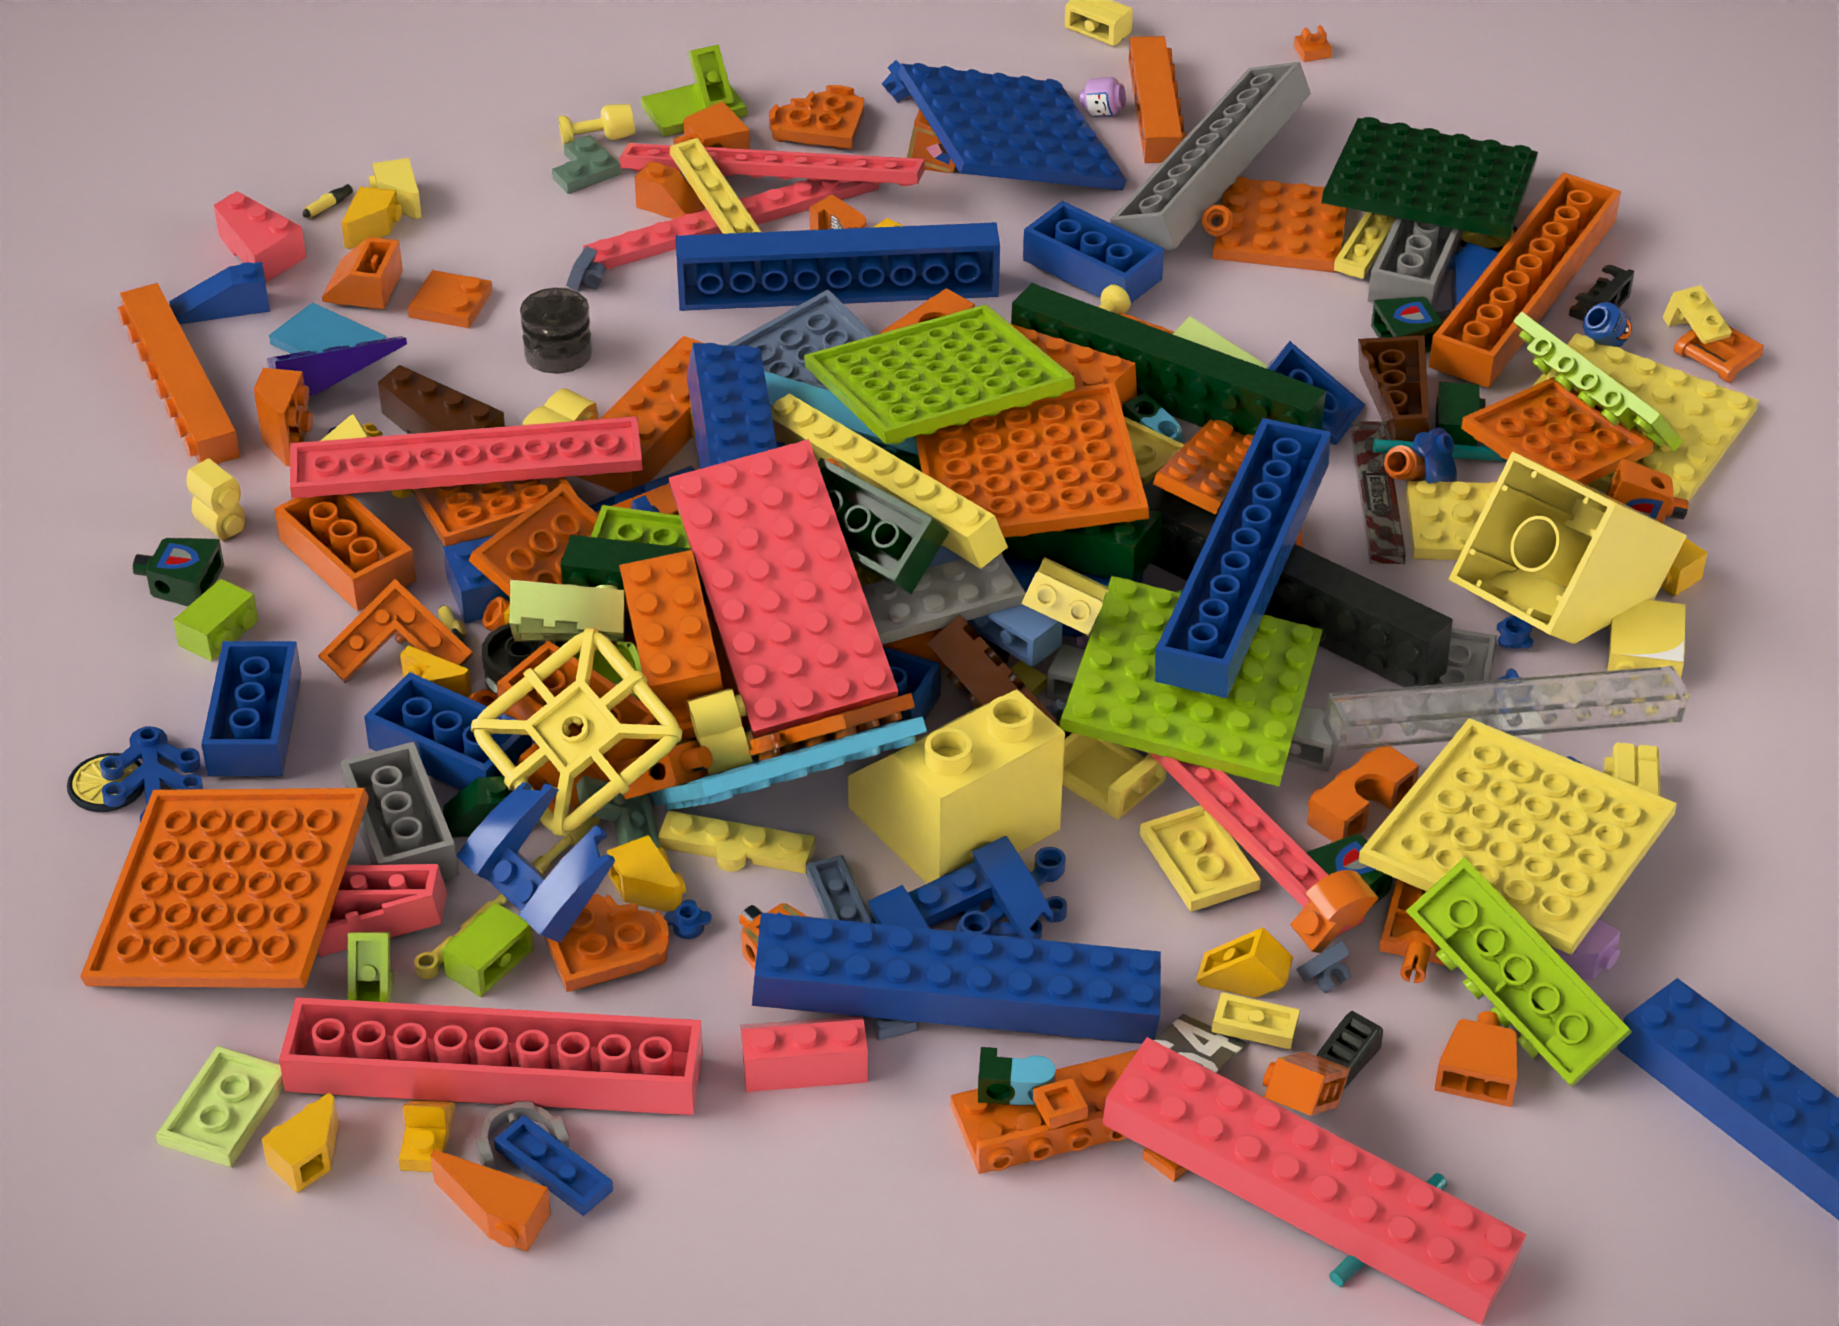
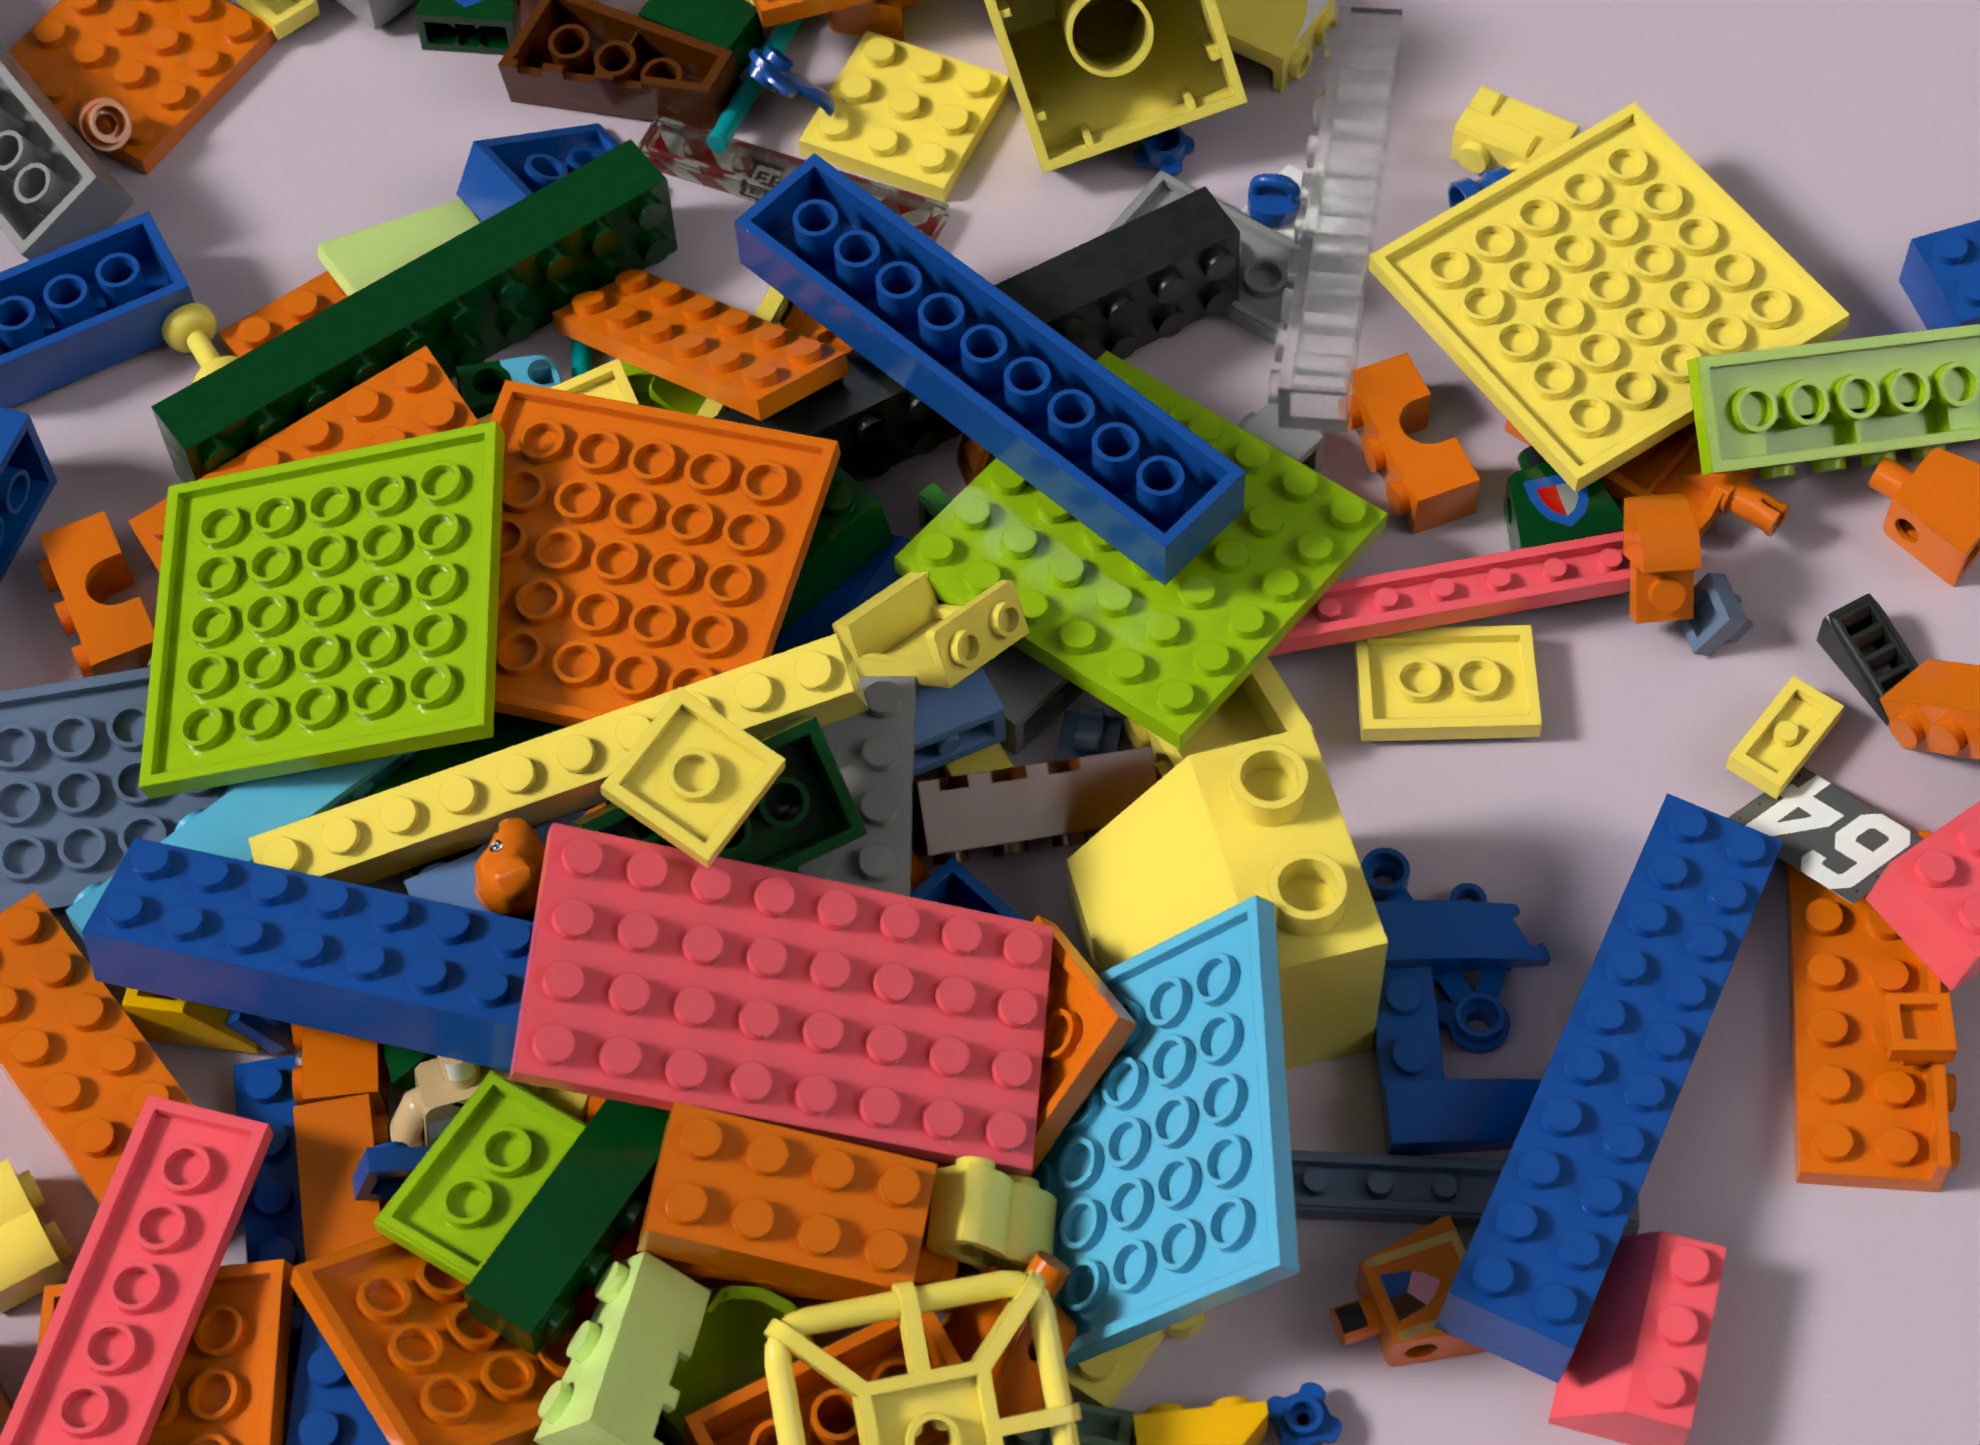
camera: 65 degrees left, 15 degrees up
(767, 746) = (1060, 1162): orange plate -> none
(864, 479) = (693, 777): none -> light yellow plate
(1011, 1079) = (1844, 1059): leg -> none
(1246, 965) = (1684, 710): yellow slope -> none
(1404, 464) = (790, 128): orange brick -> none

